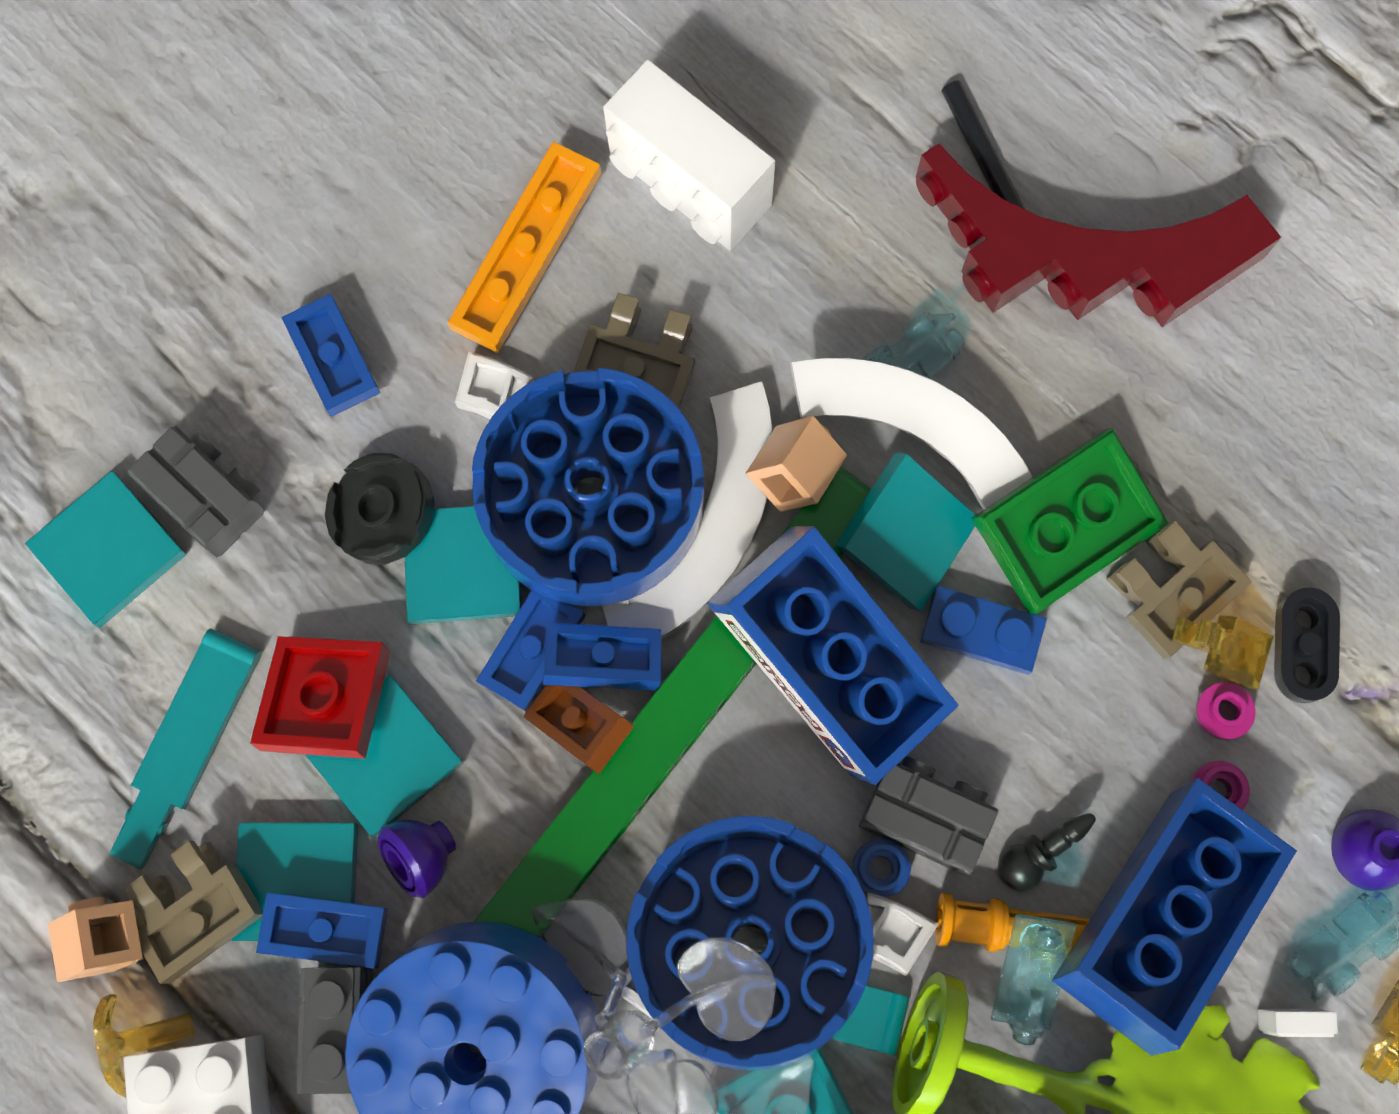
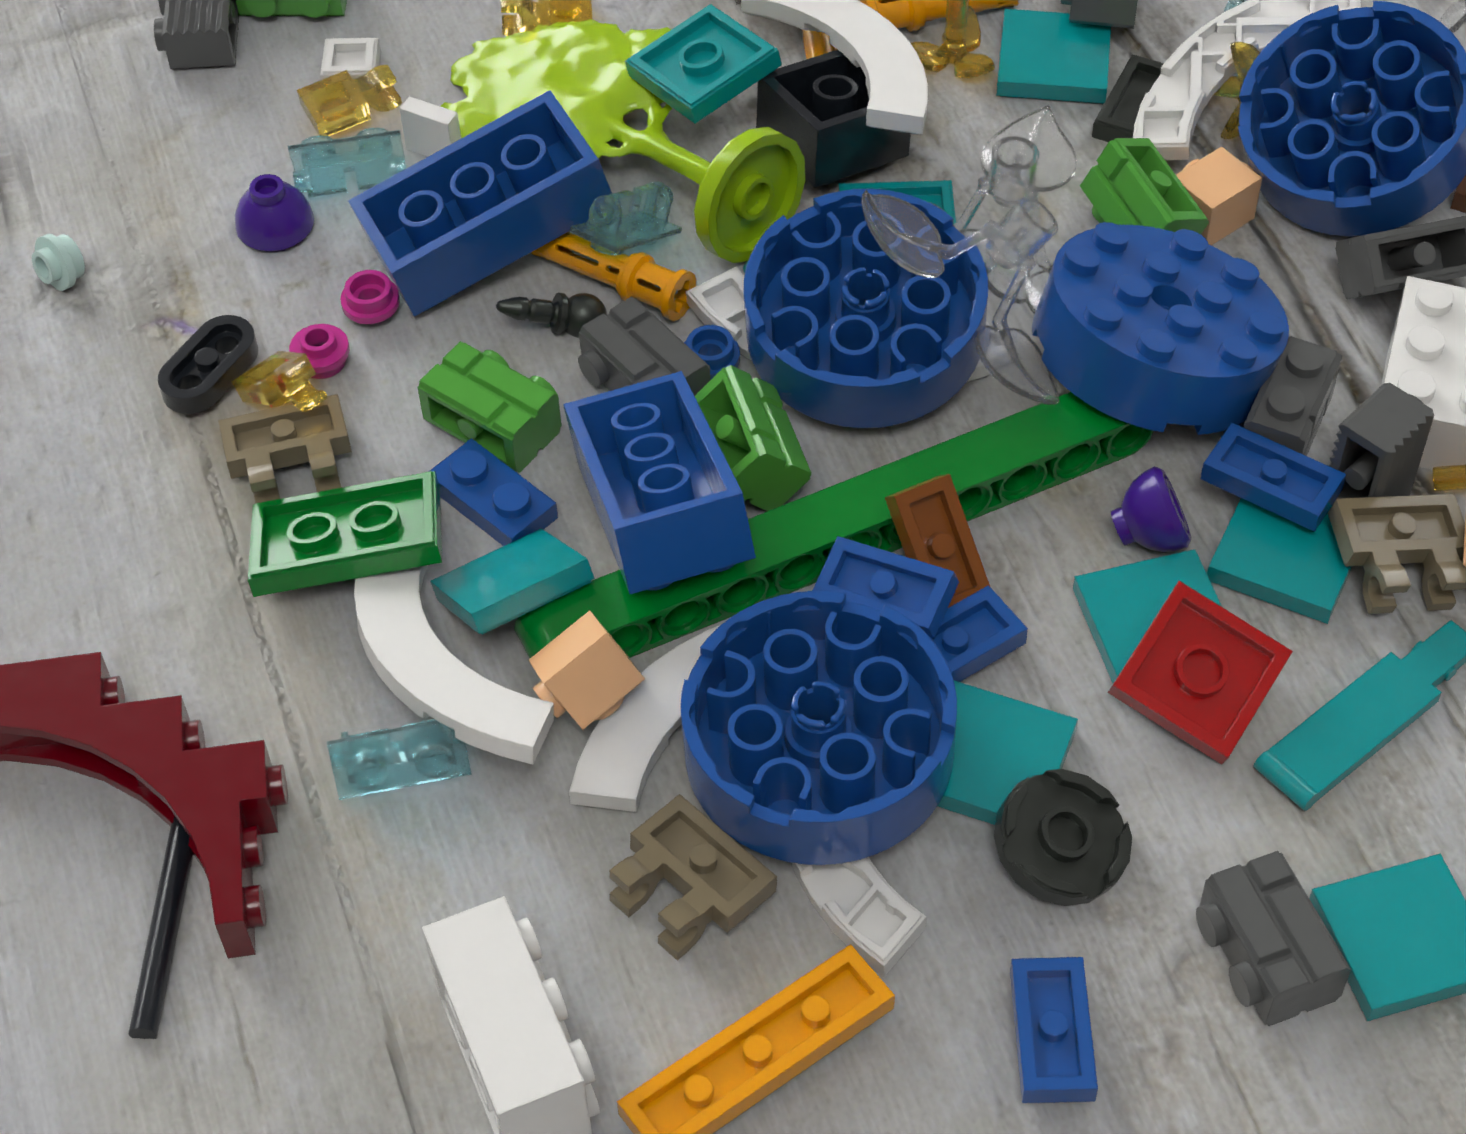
camera: 155 degrees left, 25 degrees down
(231, 989) = (1382, 444): none -> dark grey brick
(788, 765) = (754, 436): none -> bright green brick
(1035, 710) = (491, 403): none -> bright green brick

